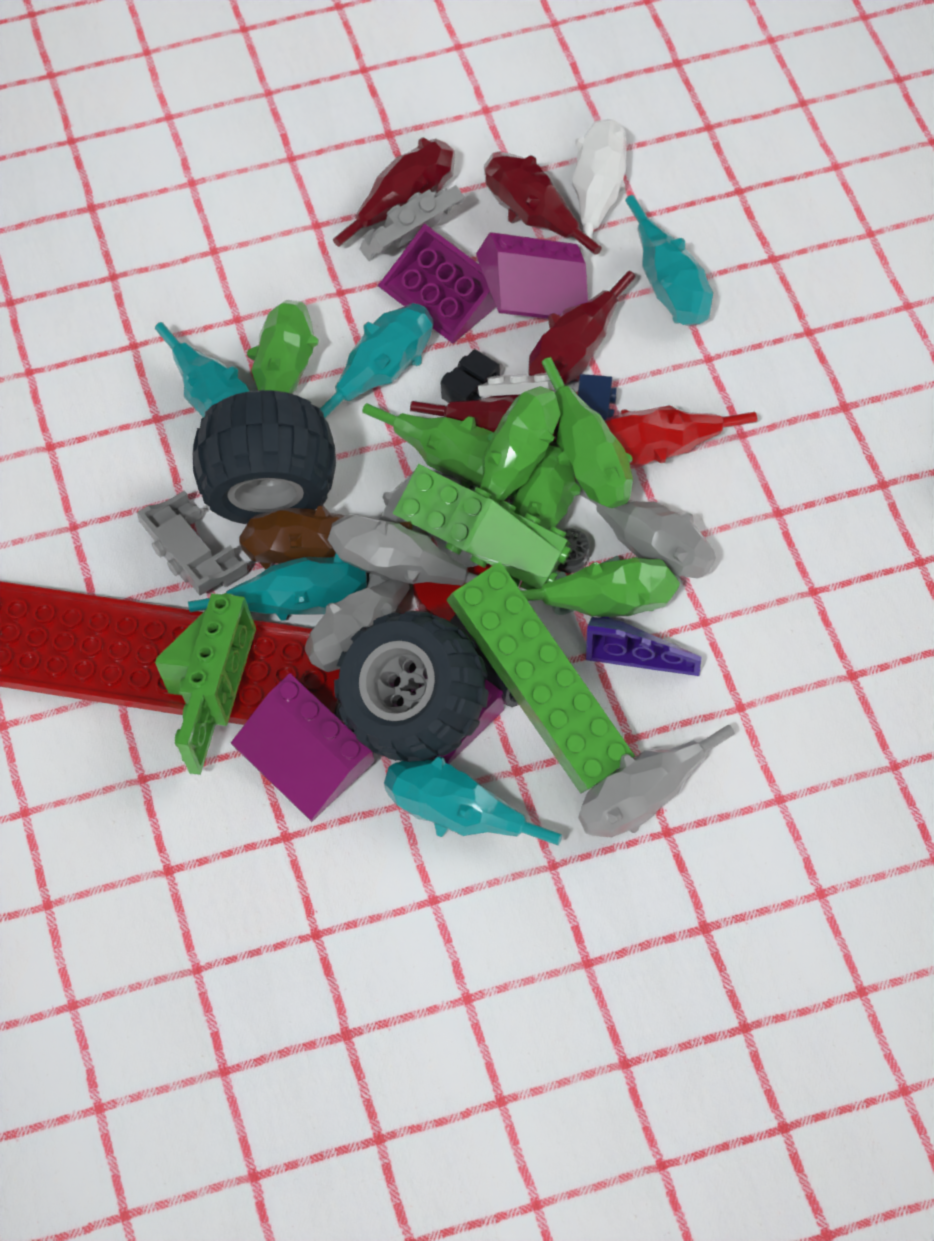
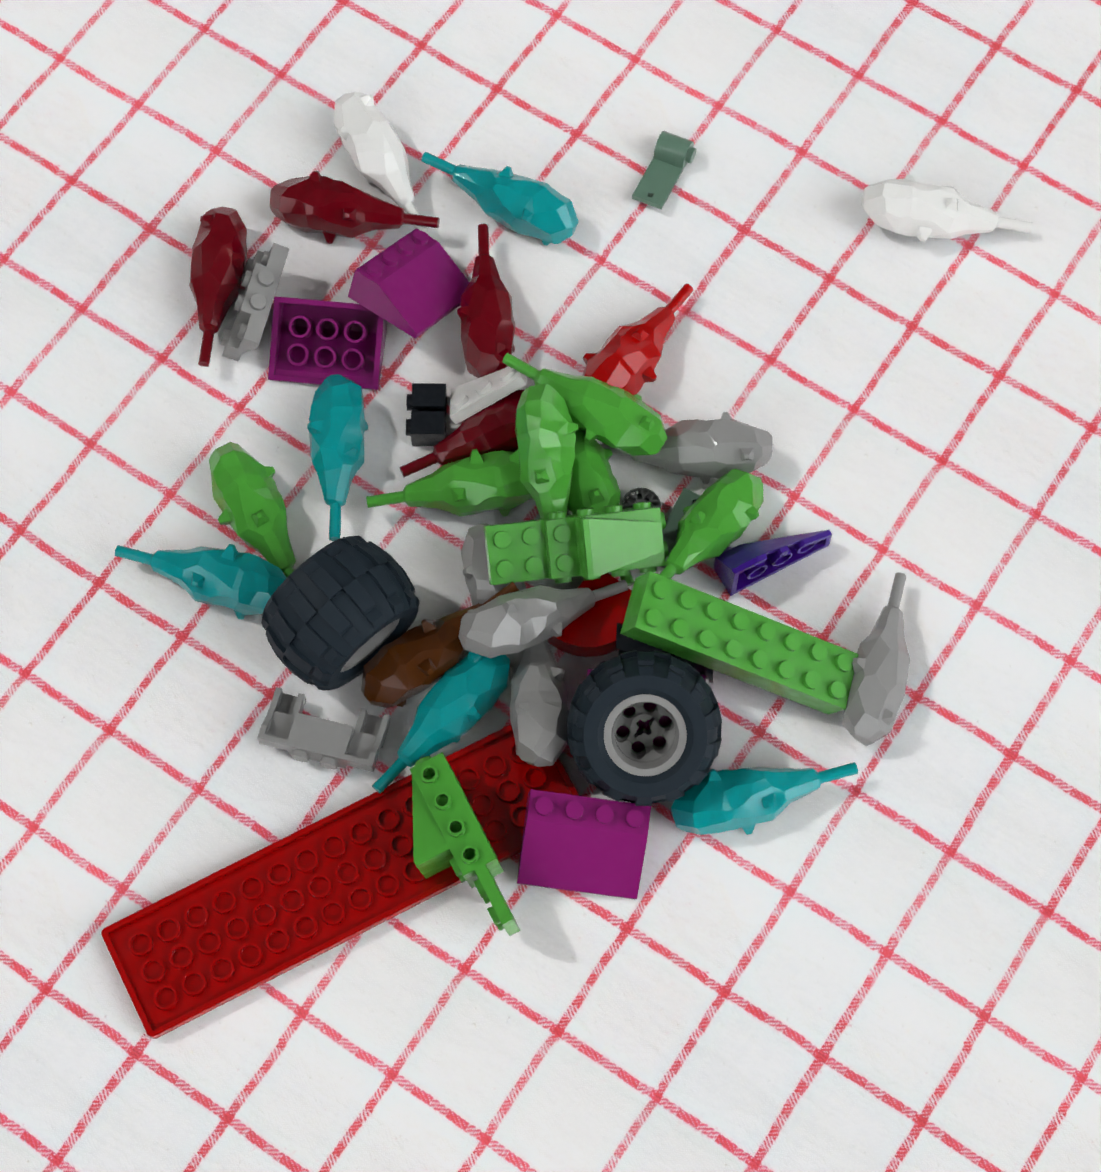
camera: 40 degrees left, 10 degrees up
(598, 393) = (548, 354): dark blue brick -> none
(831, 318) = (663, 172): none -> sand green door

